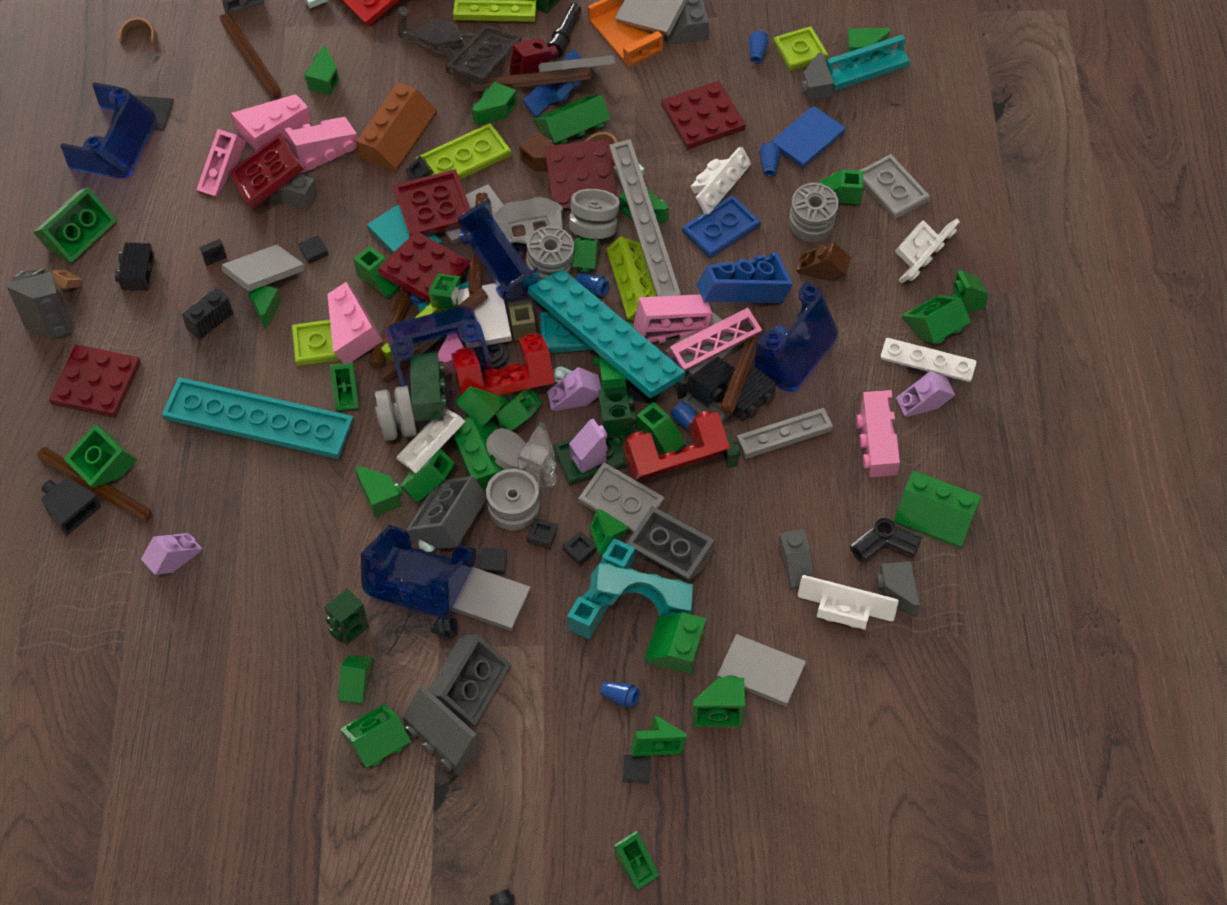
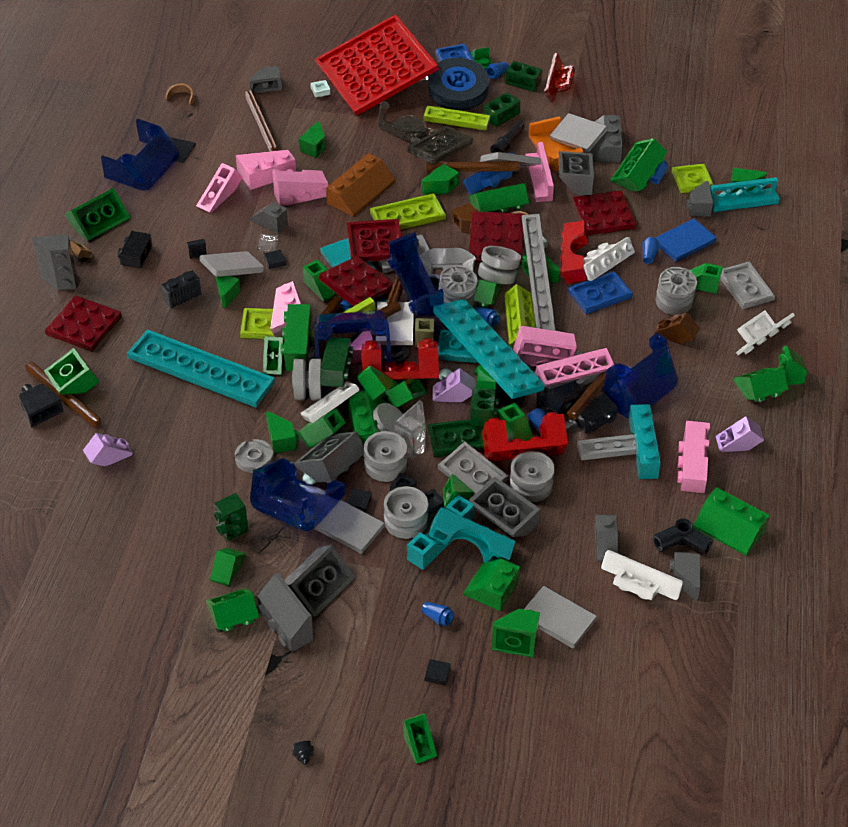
camera: 10 degrees right, 10 degrees down
(266, 170) = (252, 198): dark red plate -> none
(299, 227) = (267, 242): none -> clear tile
(352, 525) = (253, 455): none -> light grey tile
(369, 357) = (296, 334): none -> green wedge
(419, 169) = (370, 214): black tile -> none
(444, 291) = (366, 297): green slope -> none
(445, 627) = (308, 540): black plate -> none
(529, 54) = (474, 148): dark red torso -> none
(554, 570) = (405, 512): none -> light grey wheel
(589, 446) = (455, 427): lavender slope -> none
(616, 76) = (541, 176): none -> bright pink fence
(660, 740) = (462, 653): green slope -> none
(661, 66) = (577, 171): none -> dark grey slope
(676, 158) = (574, 238): none -> red arch
(693, 494) = (532, 475): none -> light grey wheel
(731, 454) = (570, 452): dark green plate -> none
(734, 44) = (639, 165): none -> green slope
(746, 281) = (609, 329): blue wedge -> none
(822, 436) = (646, 445): none -> teal arch
(928, 359) = (741, 407): white bracket -> none

